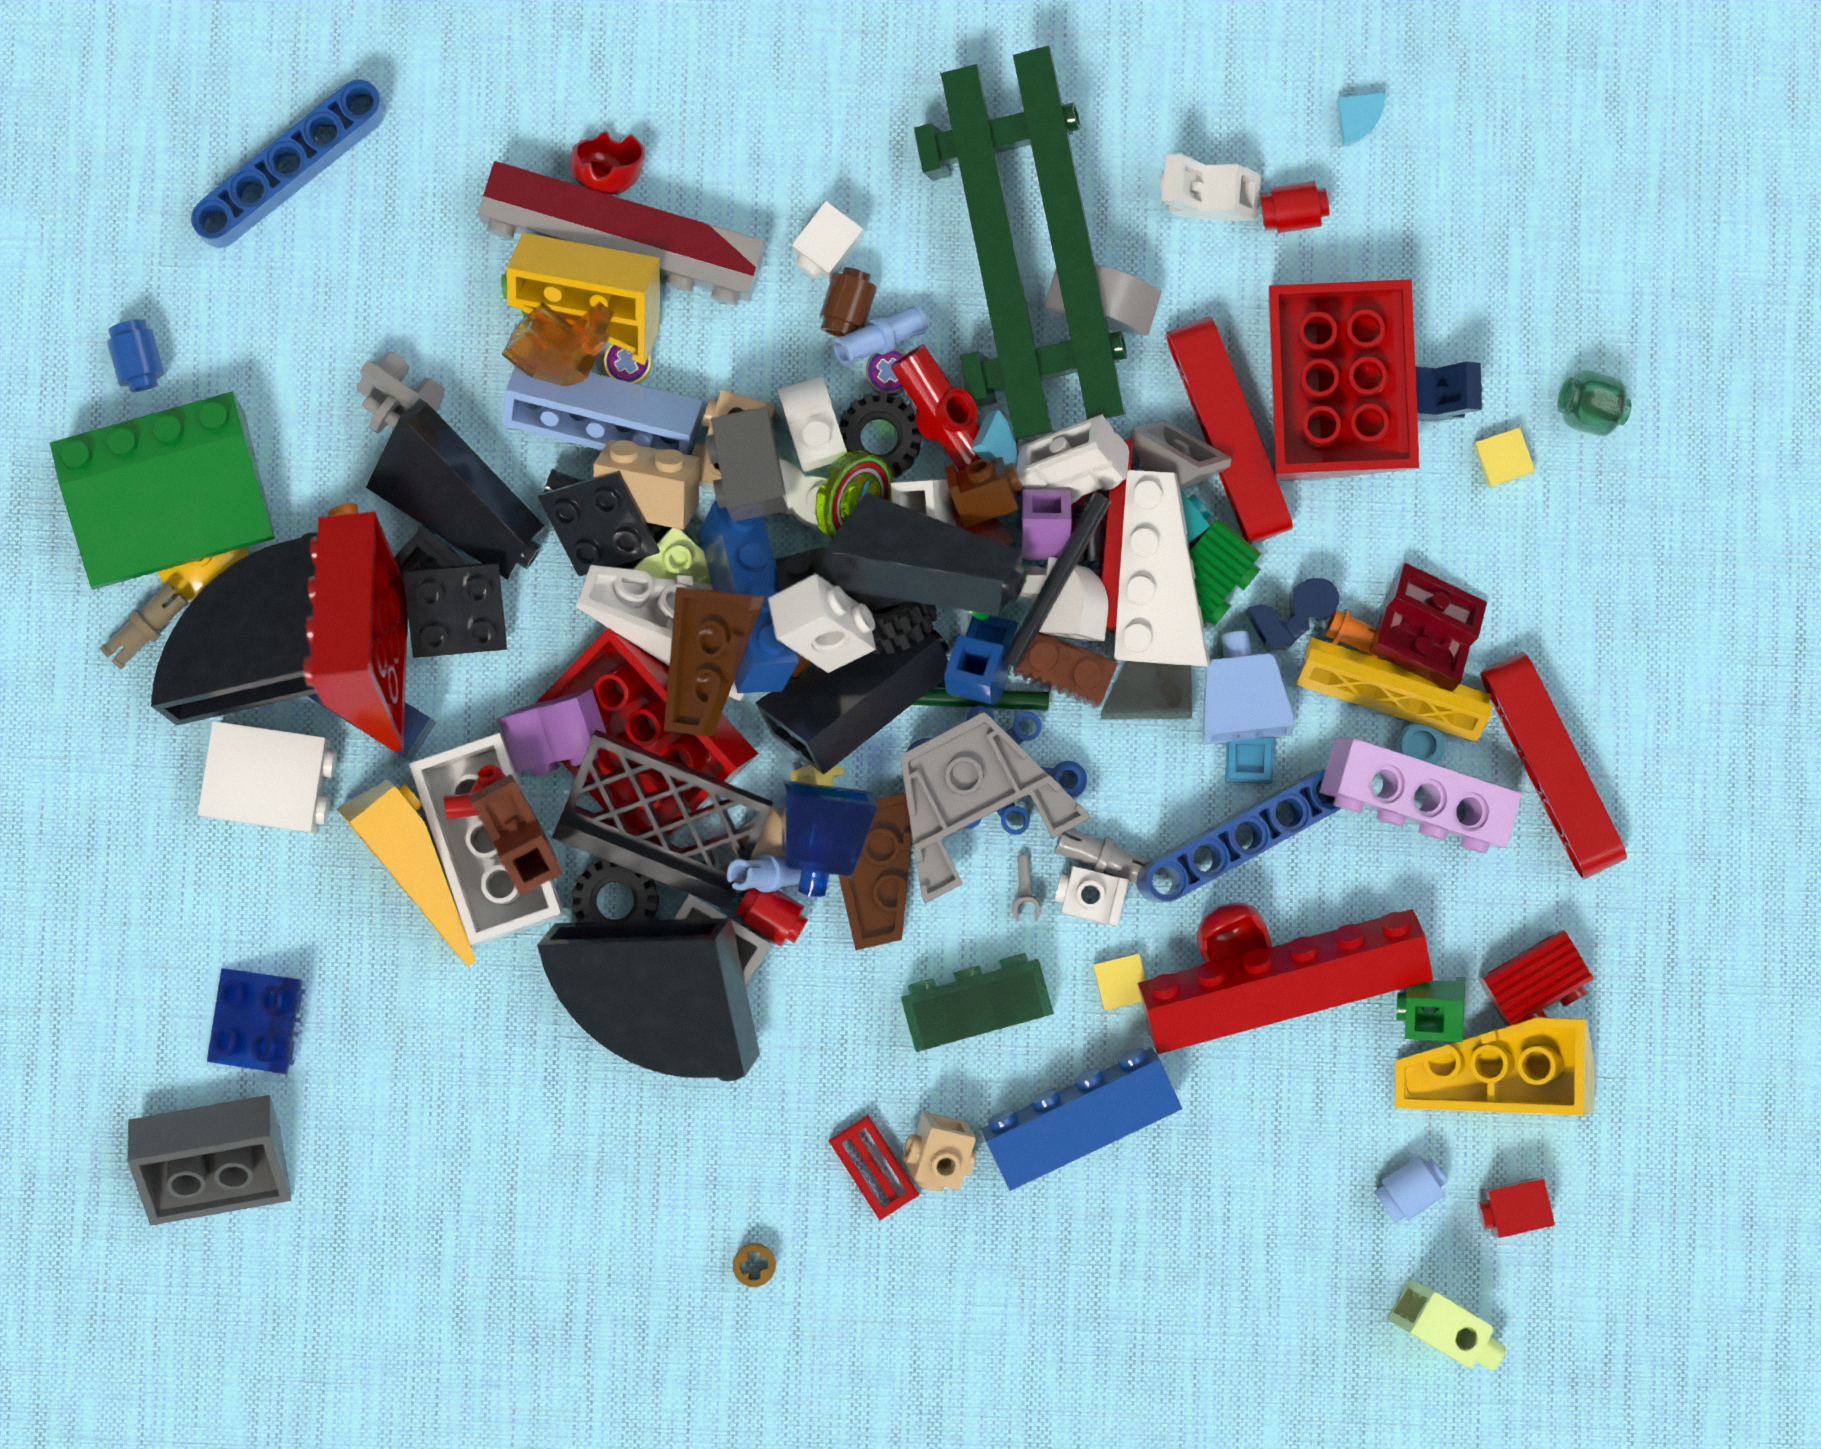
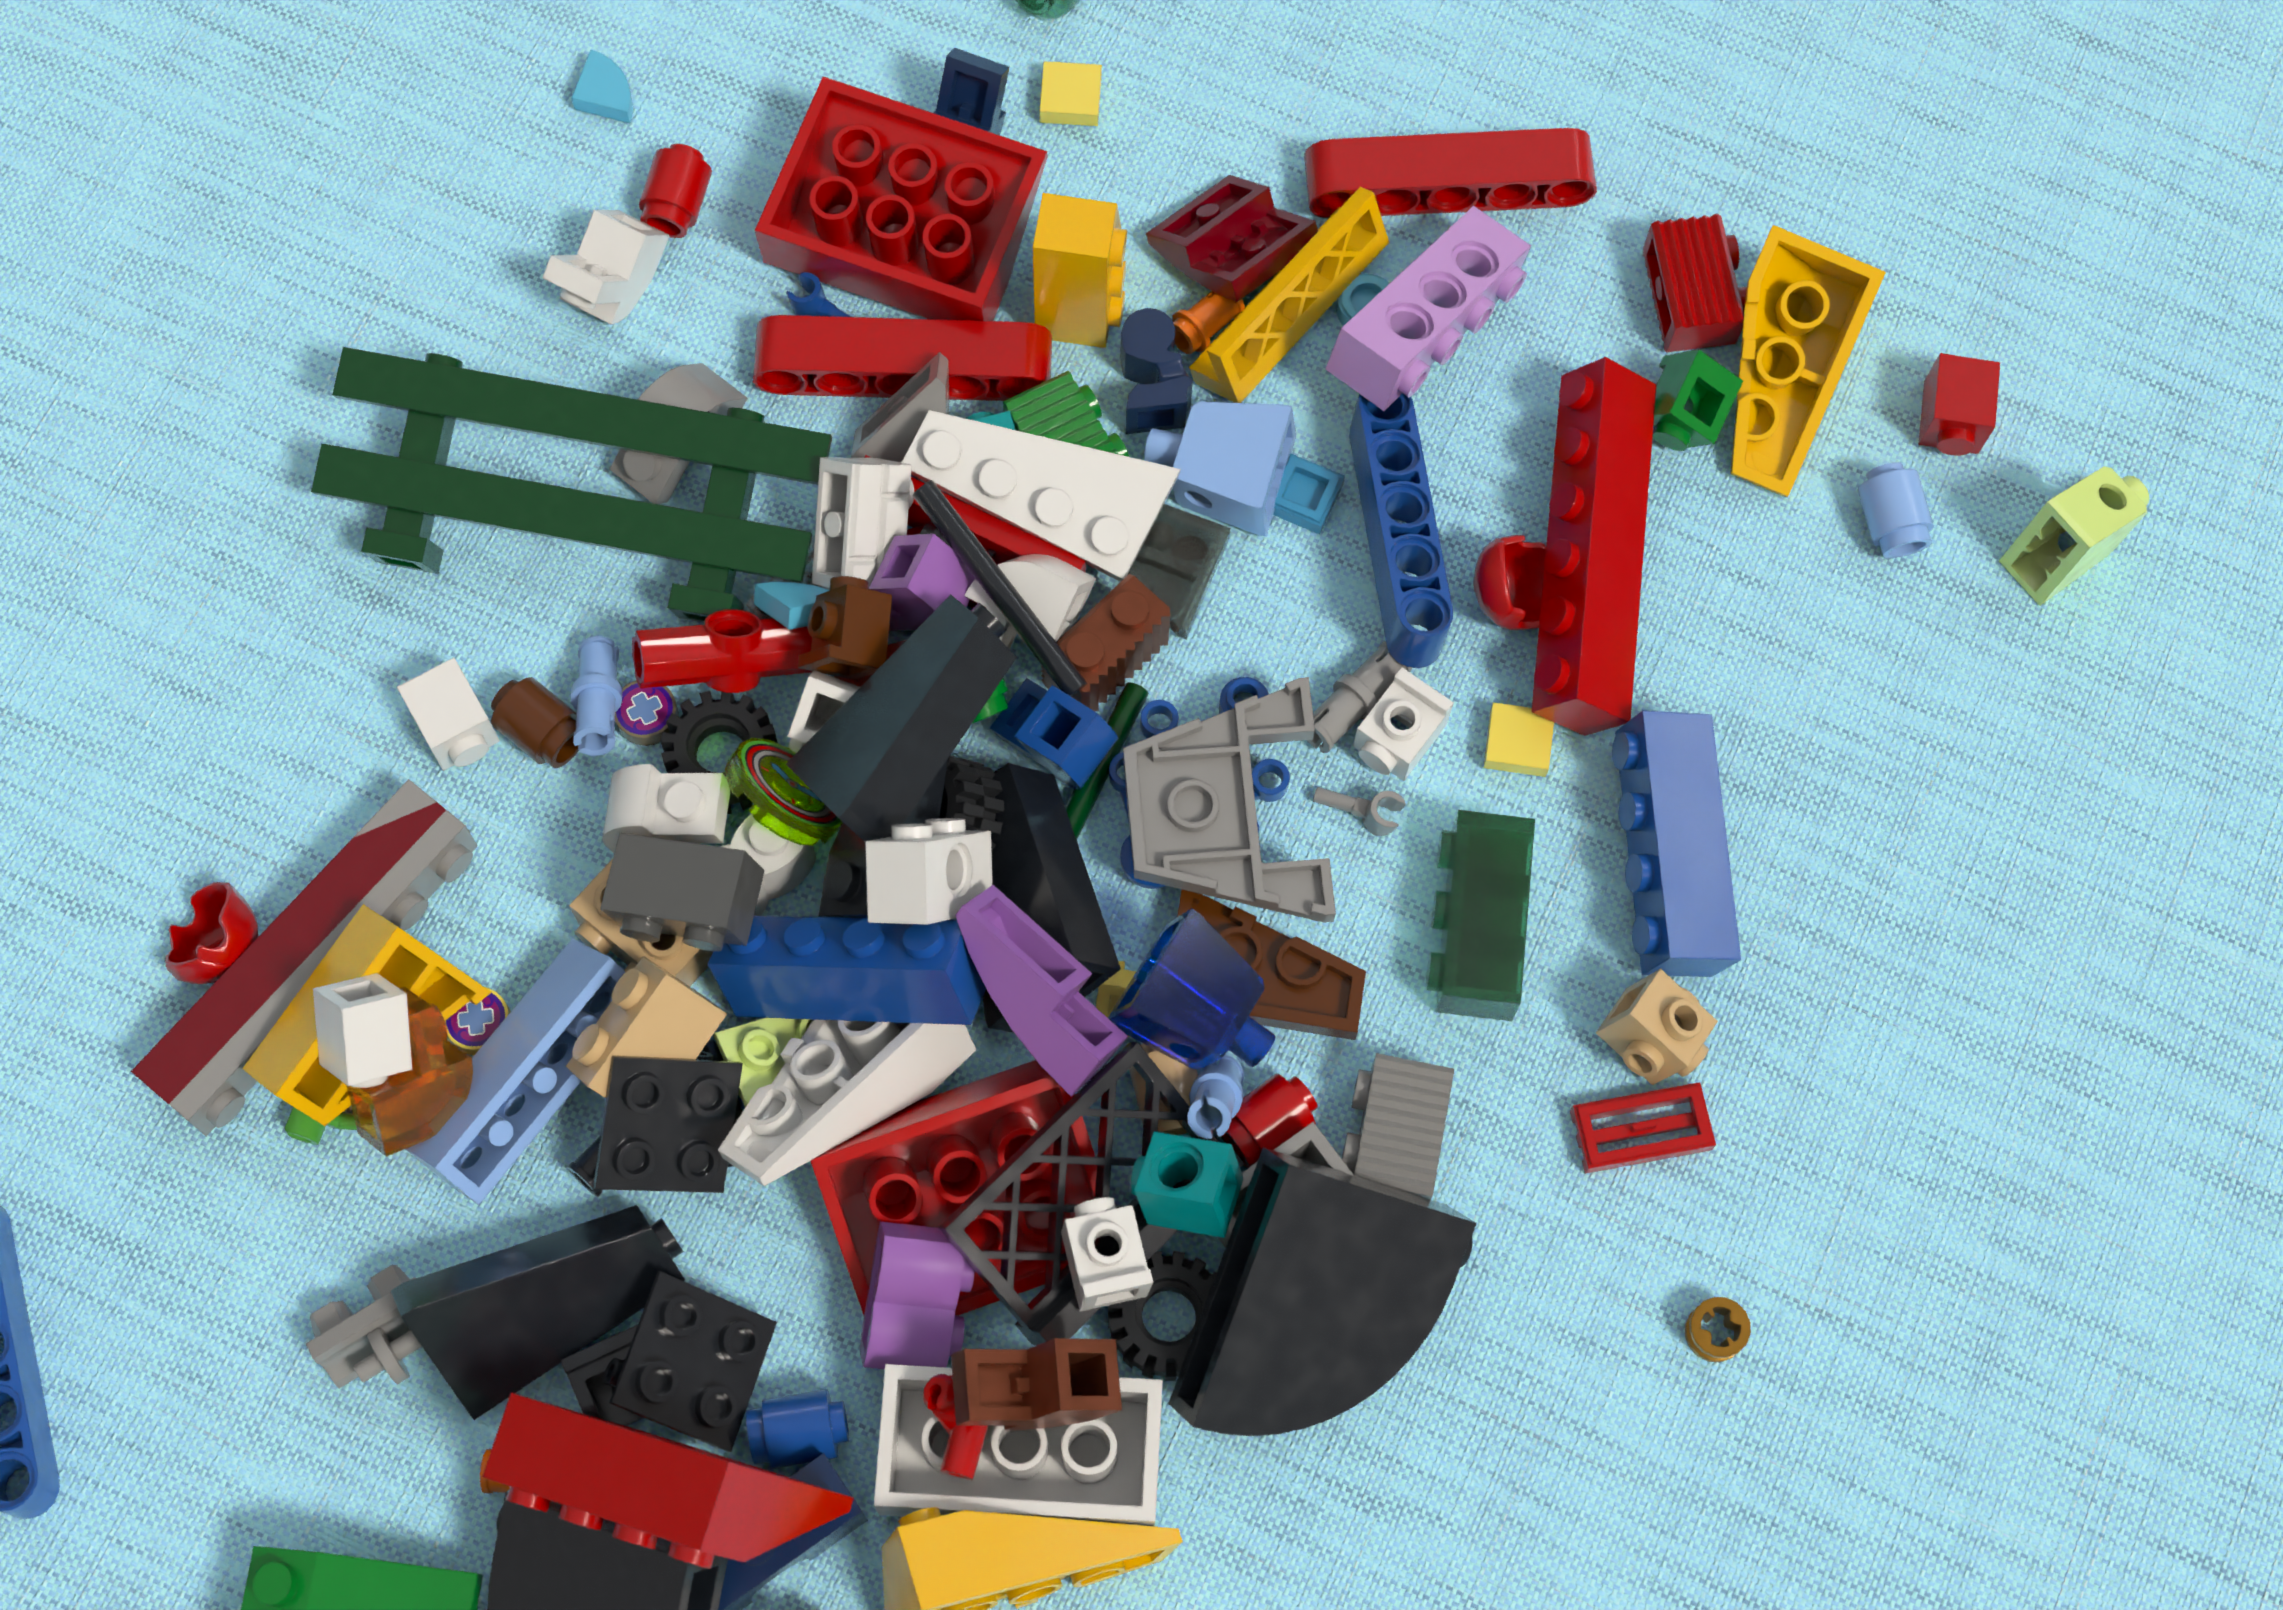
camera: 70 degrees left, 15 degrees down
(445, 692) = (796, 1429): none -> blue brick
(568, 304) = (362, 1030): none -> white brick
(602, 847) = (1101, 1278): none -> white brick
(683, 896) = (1200, 1206): none -> teal brick
(705, 655) = (905, 1036): reddish brown wing -> none
(776, 727) = (1038, 990): none -> medium lavender slope
(800, 1003) = (1400, 1123): none -> light grey brick
(1249, 356) = (816, 302): none -> blue hand
(1344, 527) = (1079, 269): none -> yellow wedge

